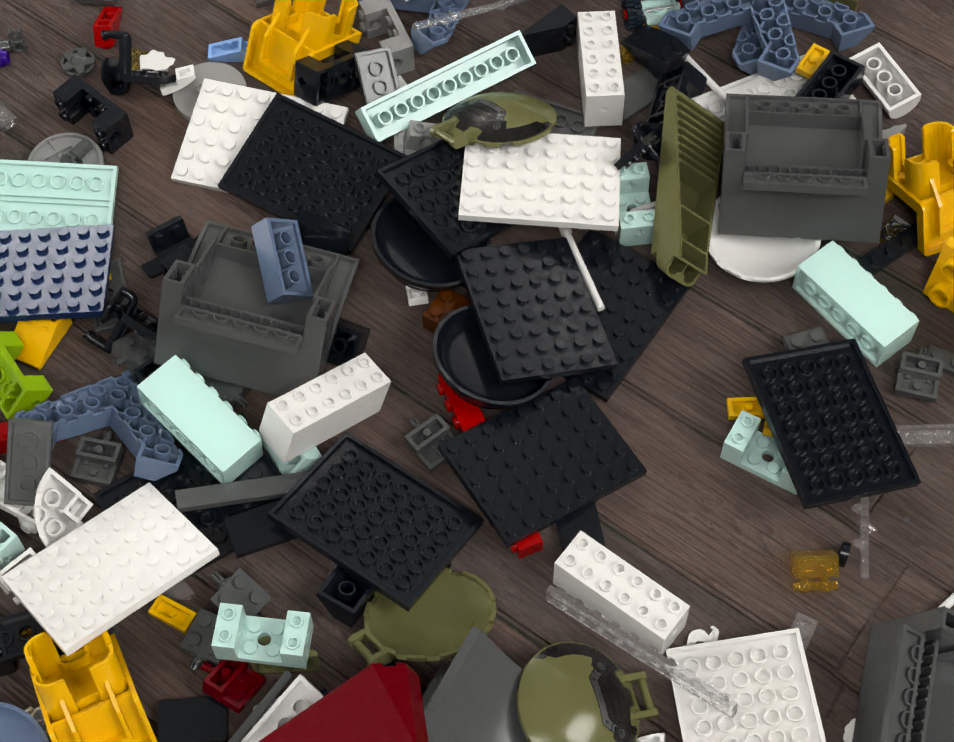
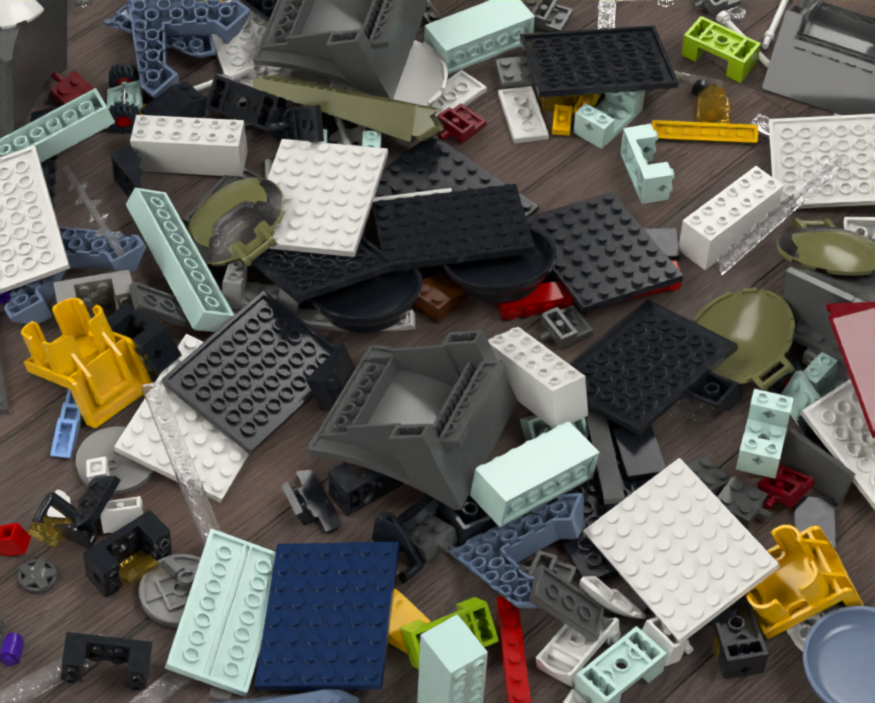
camera: 85 degrees left, 10 degrees down
(82, 126) = (137, 567): none -> clear yellow piece
(143, 104) = (120, 513): none -> white brick
(193, 130) = (180, 459): none -> clear plate
(282, 260) = (382, 383): sand blue slope -> none
(663, 499) = (637, 149): none -> light aqua plate
(713, 307) = (460, 123): none -> dark red plate
(729, 373) = (523, 114): none -> white tile
(759, 299) = (459, 89): none -> white tile
(771, 563) = (706, 131): none -> yellow plate
(908, 584) = (738, 49): none -> lime plate

